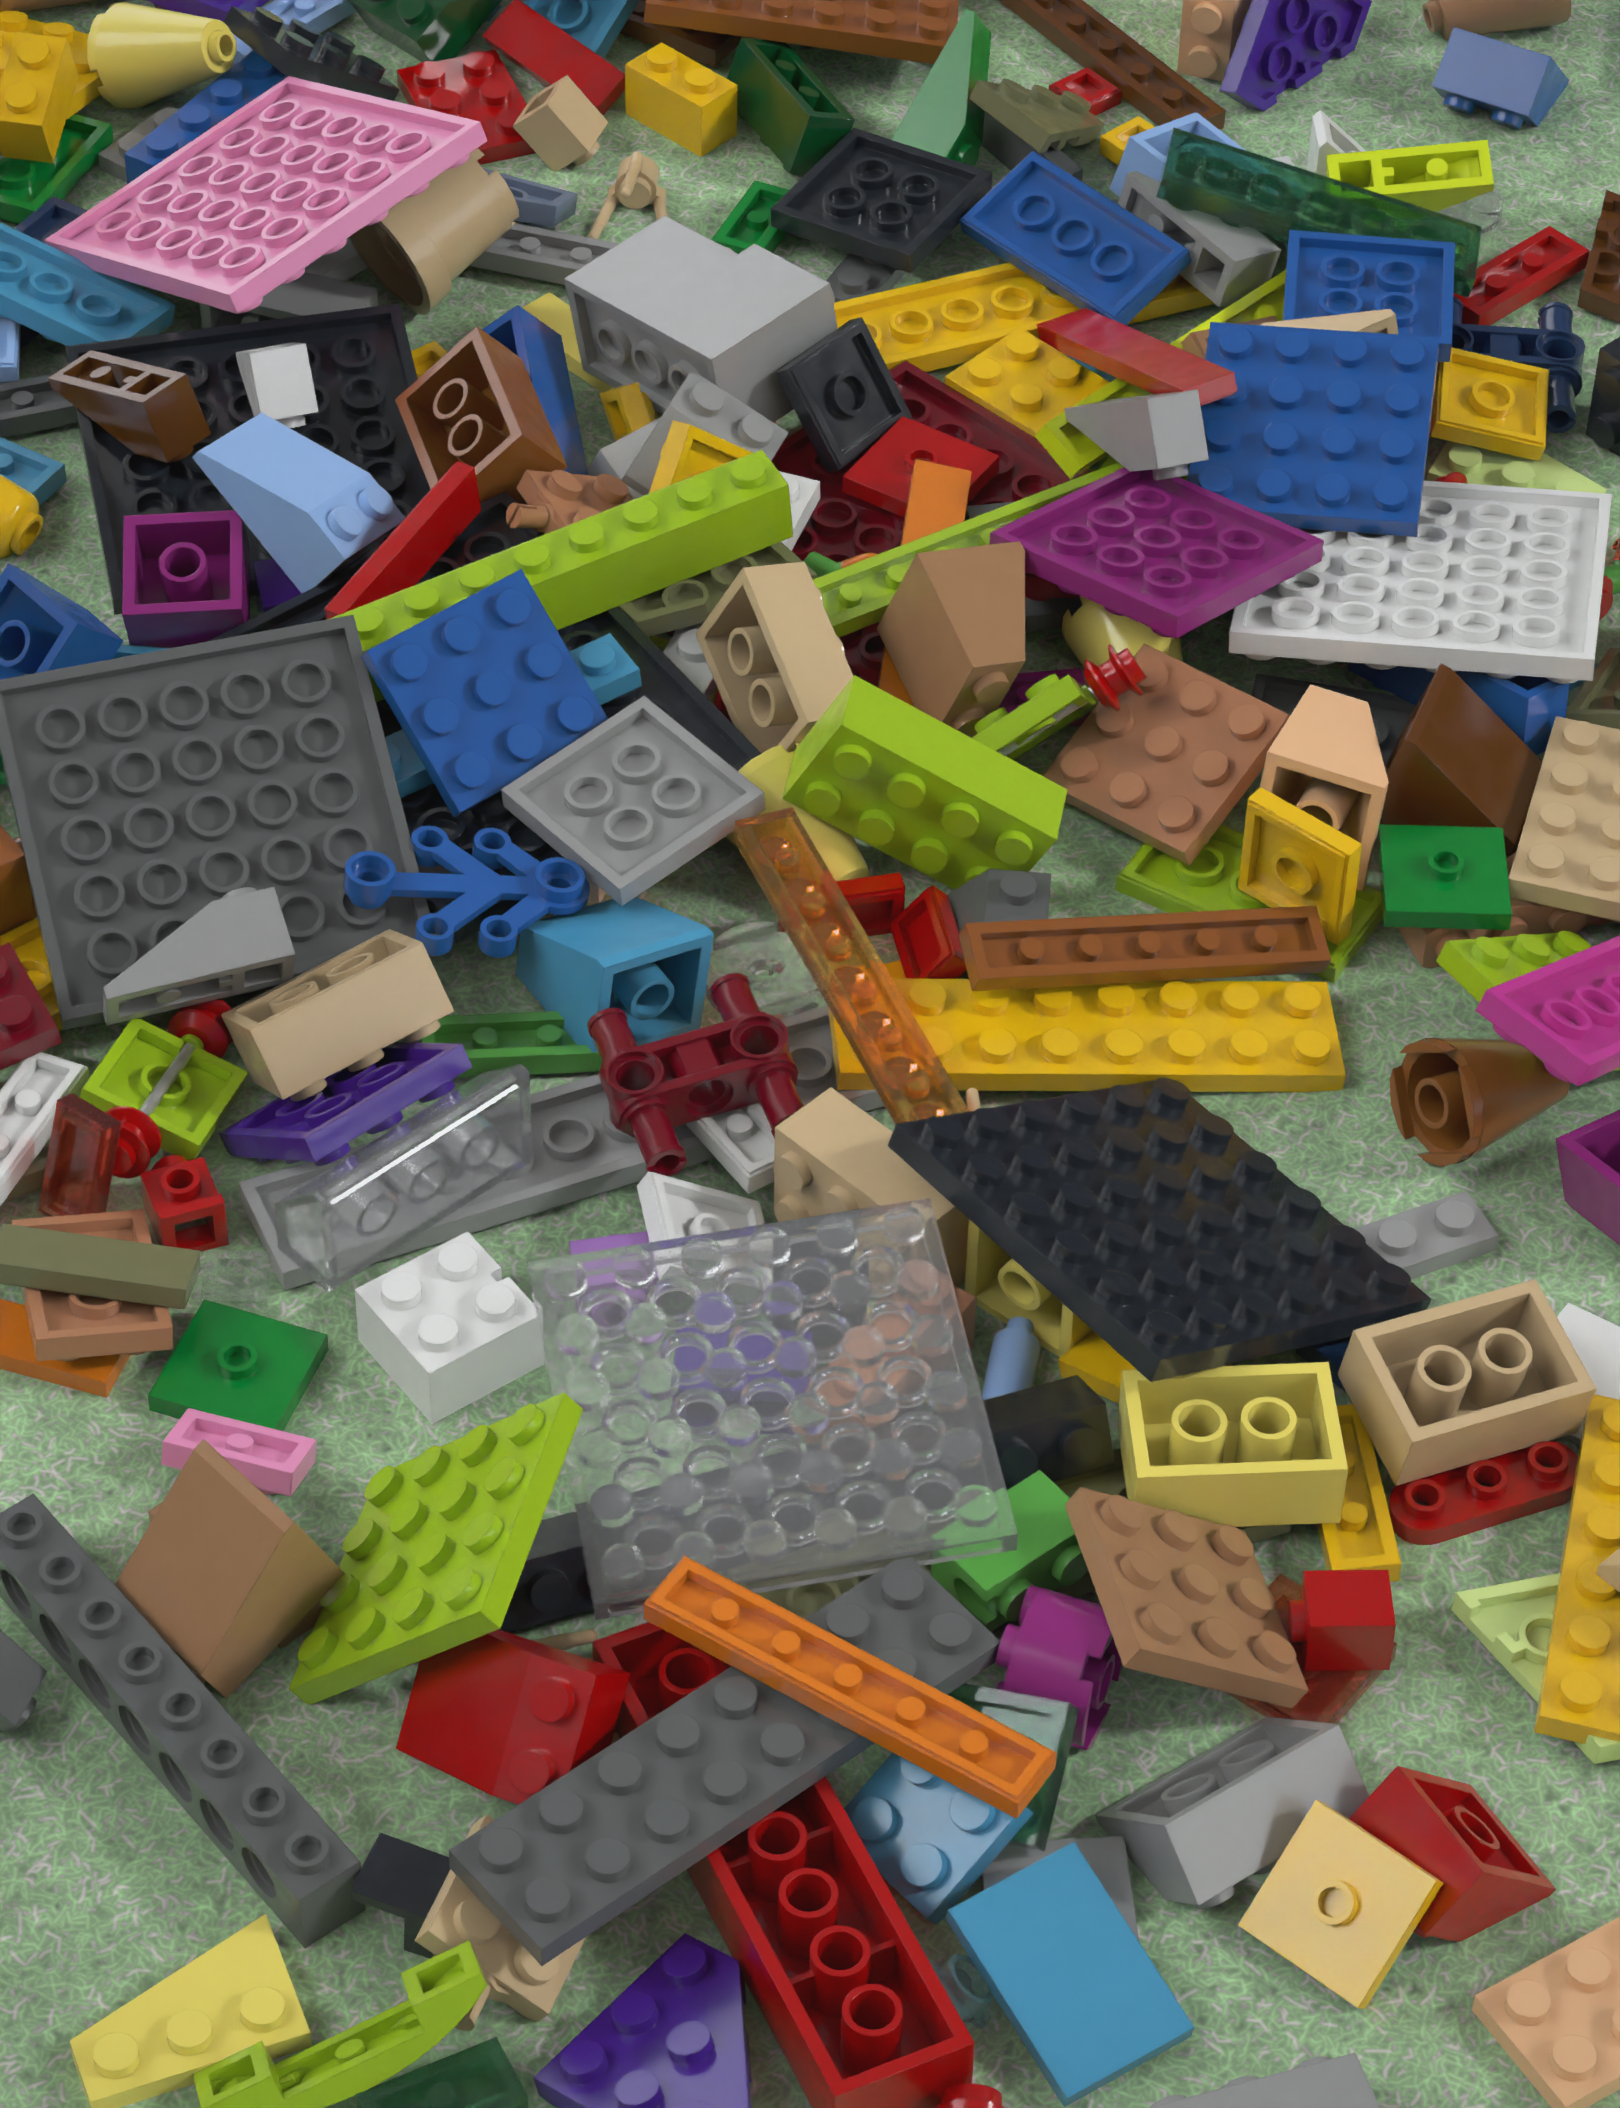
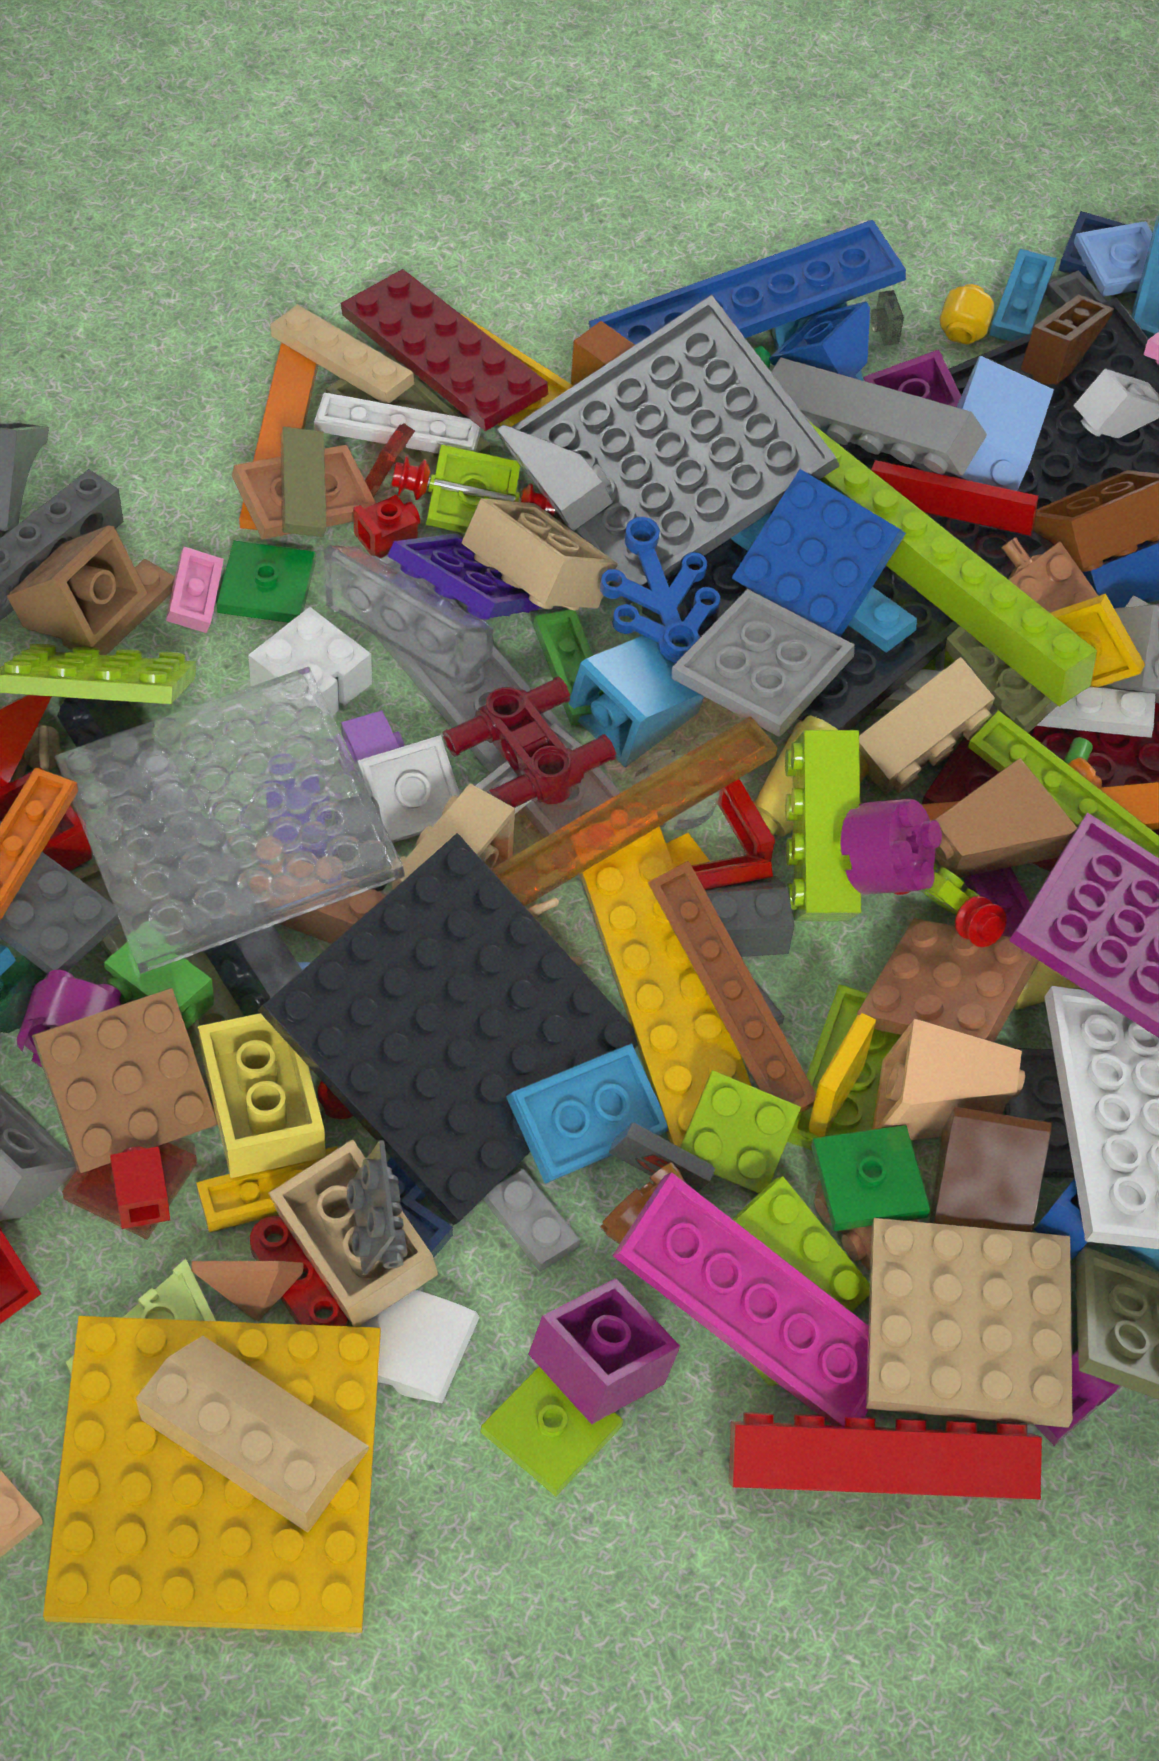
camera: 75 degrees right, 10 degrees up
(268, 568) = (883, 418): none -> light grey brick
(1010, 708) = (890, 846): none -> magenta brick
(1290, 1138) = (582, 1110): none -> dark azure tile
(1344, 998) = (740, 1131): none -> lime plate
(1367, 1078) = (651, 1153): none -> dark grey tile
(1496, 1291) = (376, 1203): none -> dark grey hinge
(1498, 1522) = (249, 1284): none -> nougat slope

